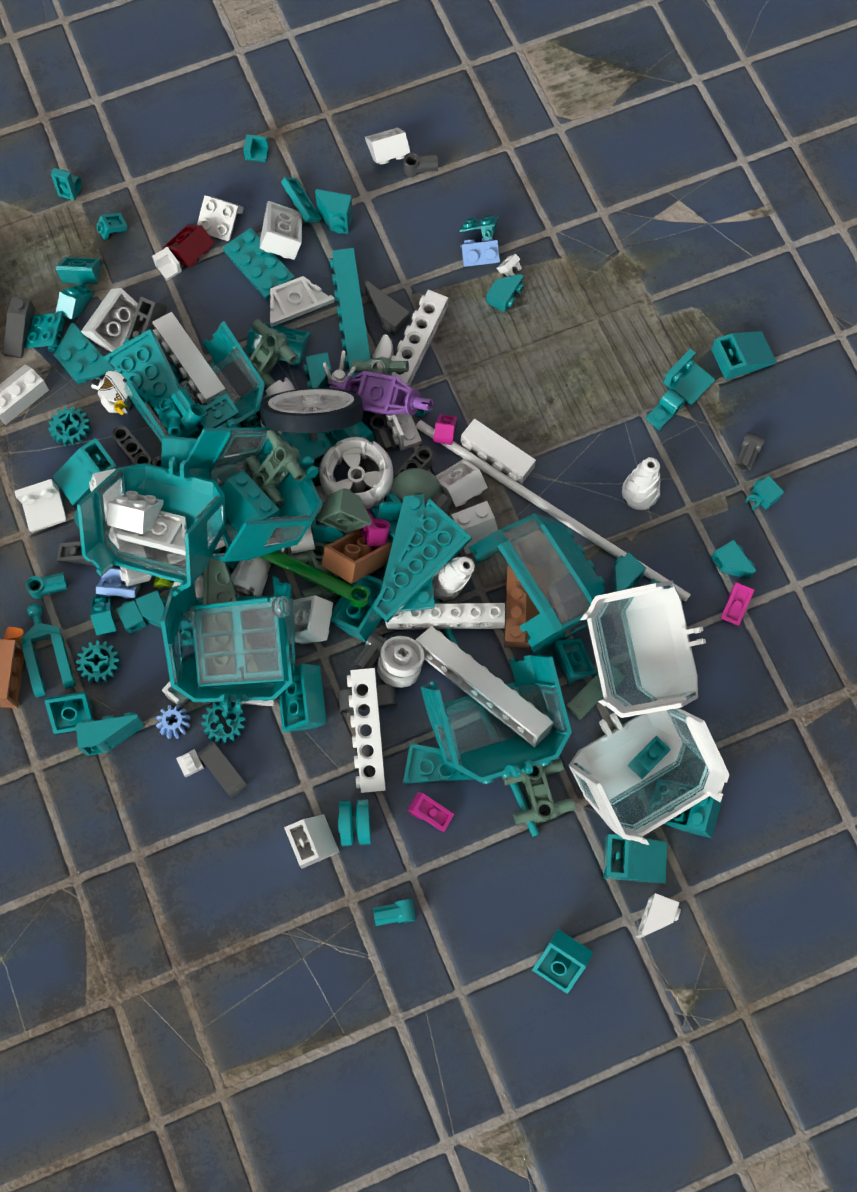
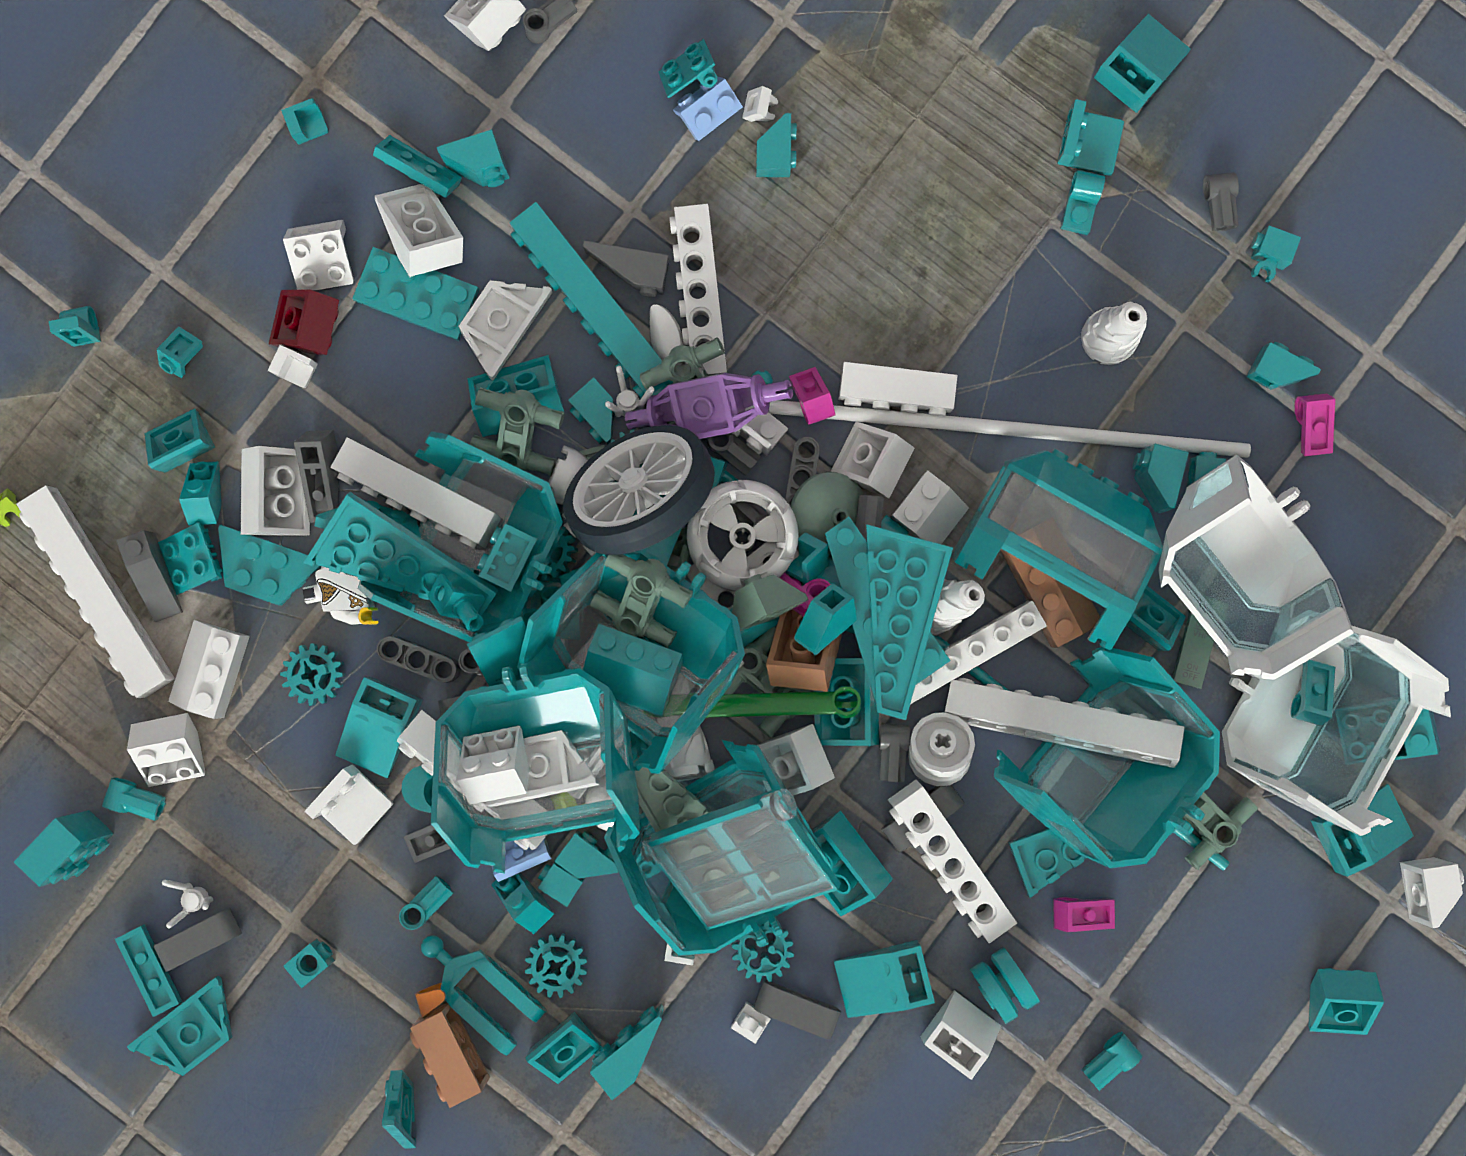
camera: 30 degrees left, 15 degrees up
(175, 728) = (710, 988): light blue gear -> none
(190, 412) = (478, 582): teal piece -> none
(285, 781) = (884, 980): none -> teal slope
(375, 539) = (826, 619): none -> teal slope

